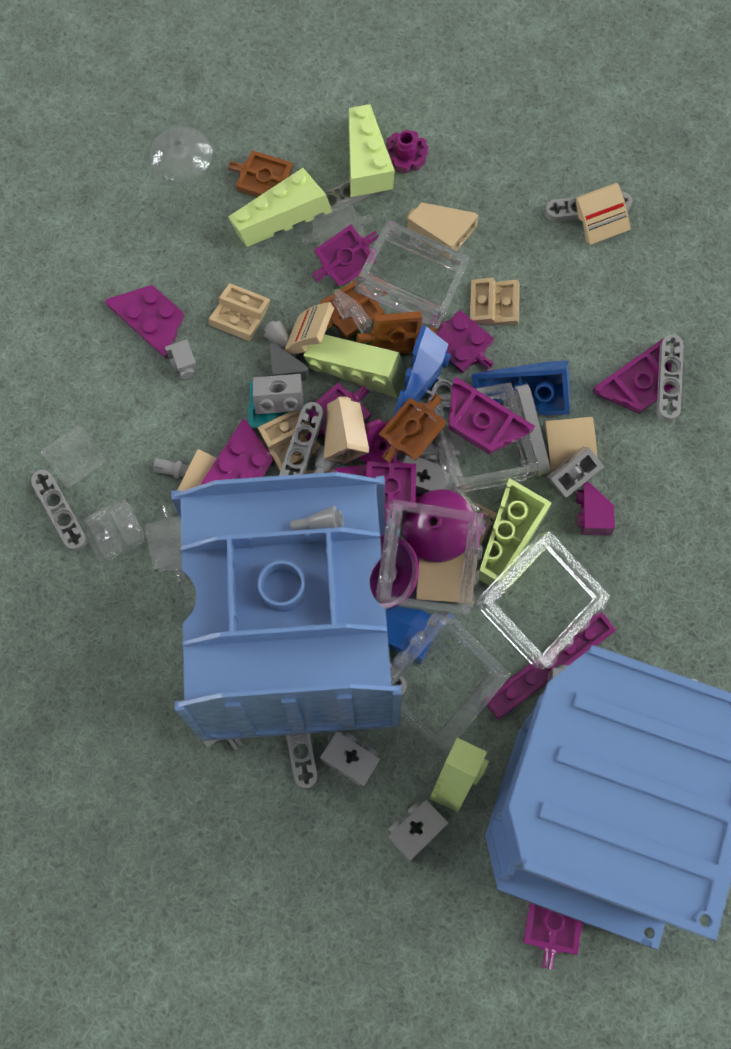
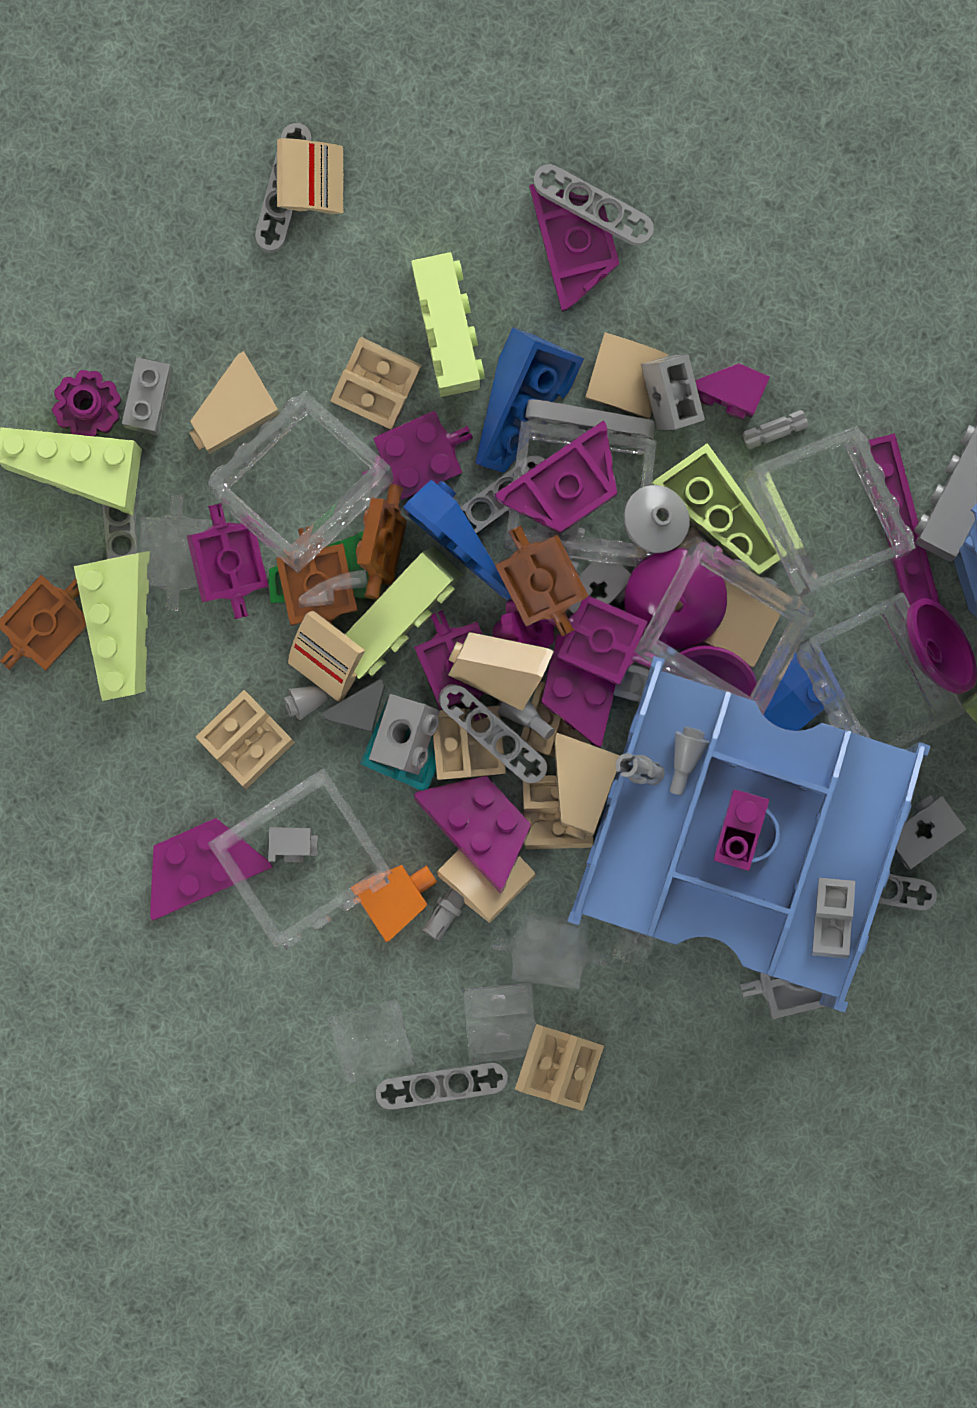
camera: 70 degrees left, 15 degrees up
(96, 578) = (559, 1067): none -> tan slope
(170, 432) = (397, 901): none -> orange torso
(192, 330) = (267, 814): none -> clear window
(242, 672) = (833, 918): none -> light grey slope
(277, 566) = (741, 829): none -> magenta slope
(296, 486) = (639, 769): none -> light grey pin
(425, 178) = (147, 396): none -> light grey brick
(475, 489) = (646, 528): none -> light grey dish
(484, 710) = (940, 647): none -> magenta dish
(549, 324) = (446, 324): none -> yellowish green wedge
(581, 551) = (775, 429): none -> light grey axle

